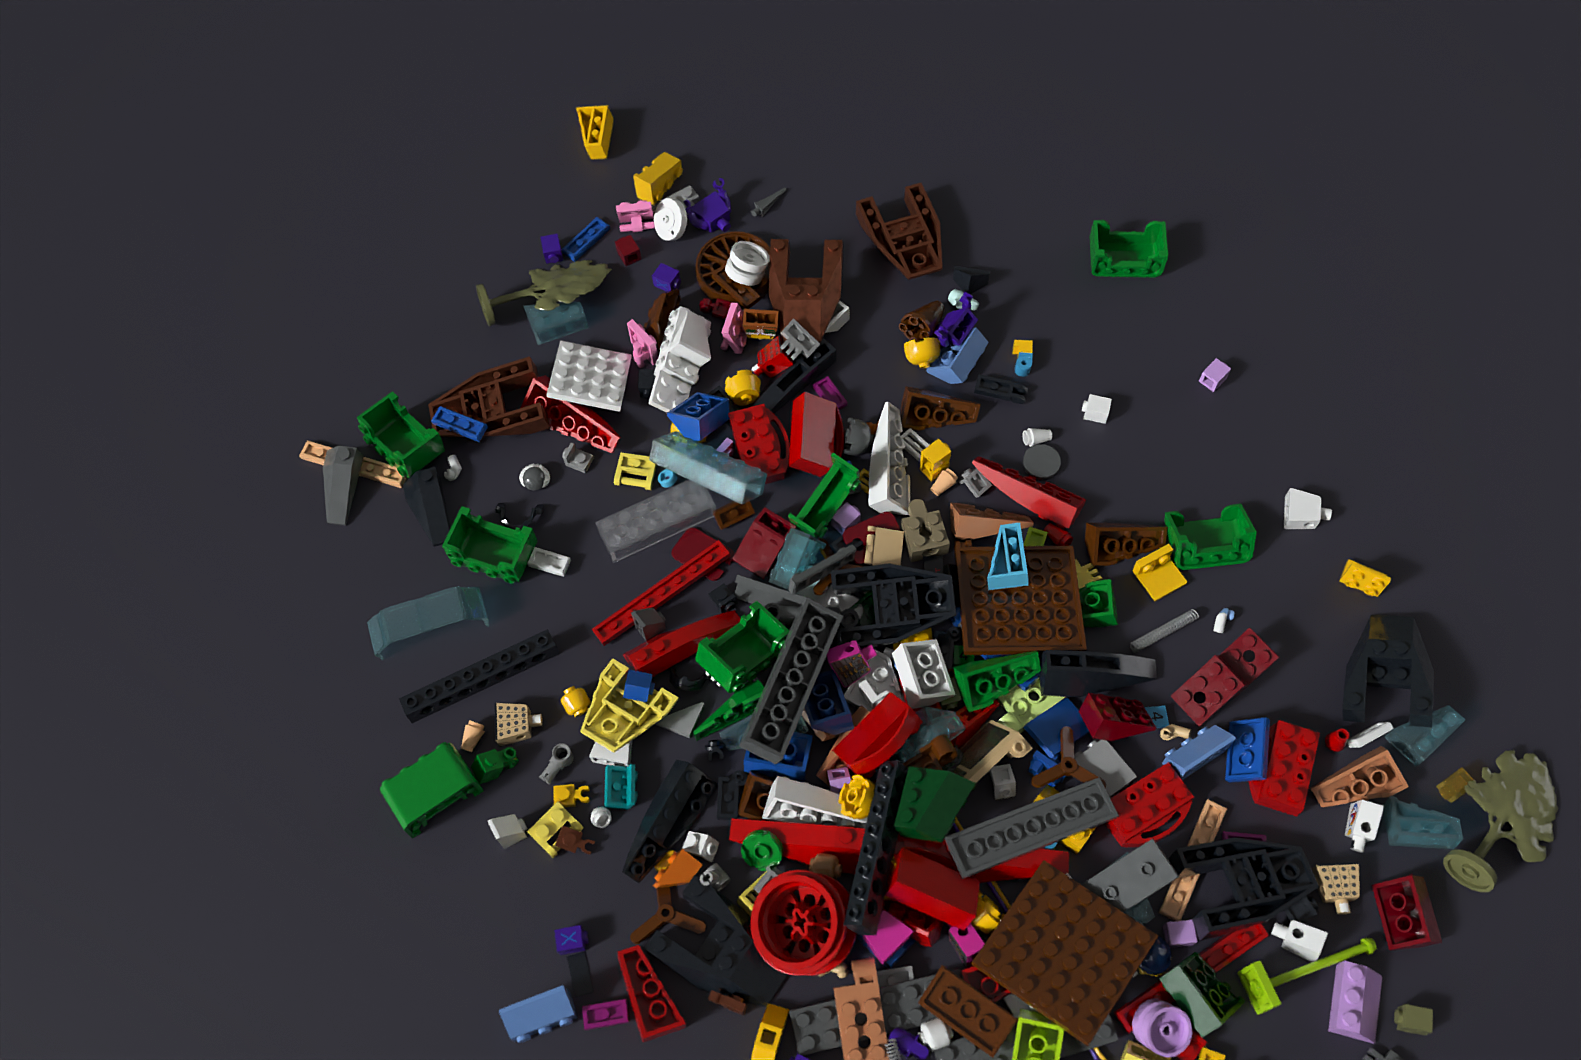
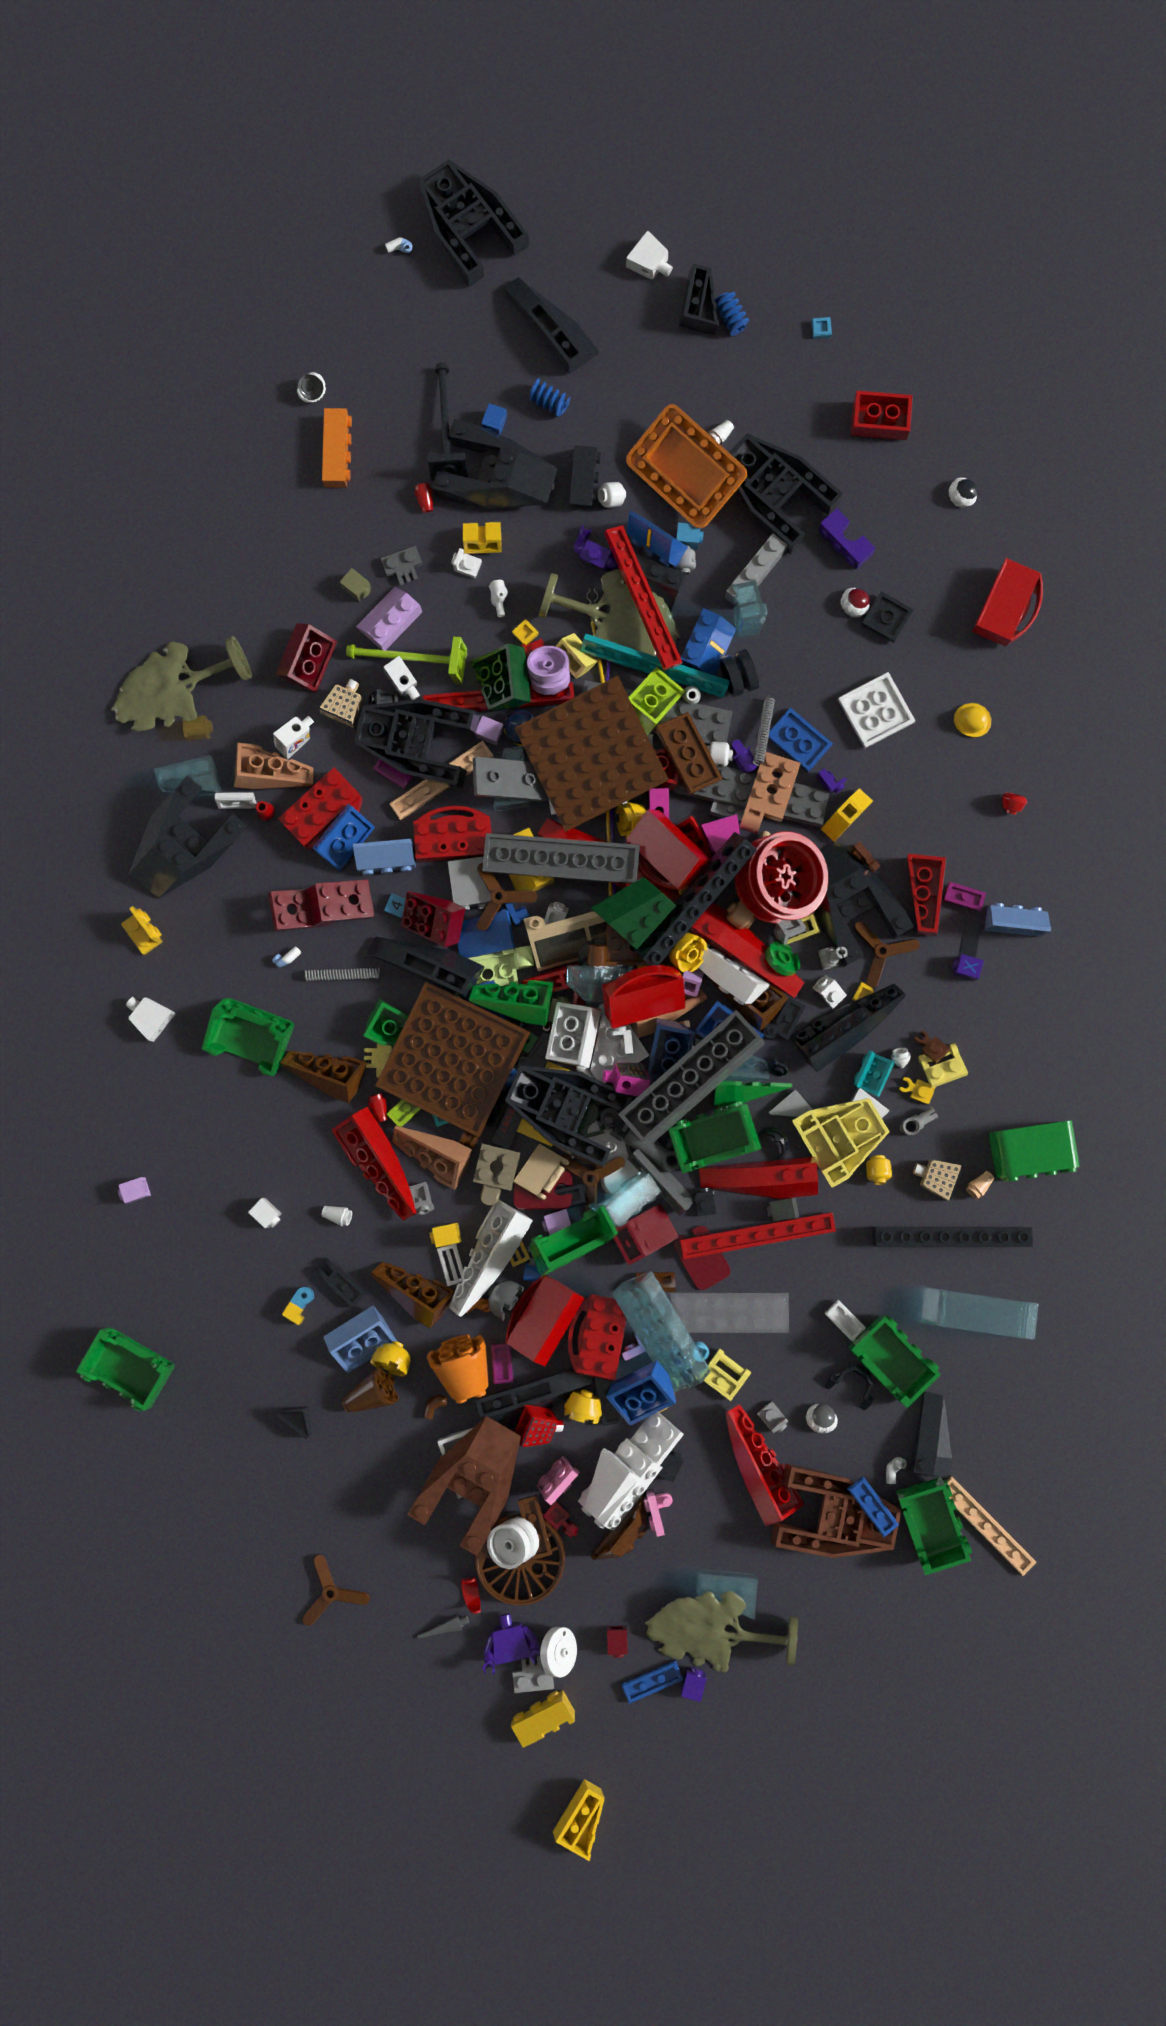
camera: 155 degrees left, 20 degrees up
(340, 477) = (1006, 1511): dark grey wedge -> none
(489, 764) = (971, 1147): green brick -> none
(508, 830) = (983, 1081): white slope -> none
(589, 376) = (724, 1500): white plate -> none
(635, 214) = (590, 1677): bright pink plate -> none
(638, 686) = (821, 1149): blue brick -> none
(666, 278) = (594, 1582): dark purple brick -> none
(679, 871) = (858, 976): orange slope -> none
(758, 229) = (471, 1594): none -> red helmet
(760, 323) = (533, 1468): dark orange torso -> none
(798, 340) = (509, 1424): light grey hinge -> none
(822, 569) = (635, 1172): dark grey plate -> none
(863, 369) = (461, 1366): none -> orange cone
(869, 339) = (433, 1403): none -> reddish brown arm
(870, 186) = (339, 1594): none -> reddish brown piece
(908, 242) = (333, 1493): copper wedge -> none
(944, 481) = (448, 1213): light nougat cone -> none
(955, 296) = (319, 1398): light aqua animal -> none
(957, 323) = (347, 1366): dark purple torso -> none
(1009, 561) = (442, 1095): medium azure wedge -> none
(1041, 461) = (348, 1188): dark grey tile -> none
(1159, 573) = (313, 1024): yellow bracket -> none
(1173, 731) = (390, 886): tan arm -> none
(1418, 827) = (252, 712): clear light blue wedge -> none

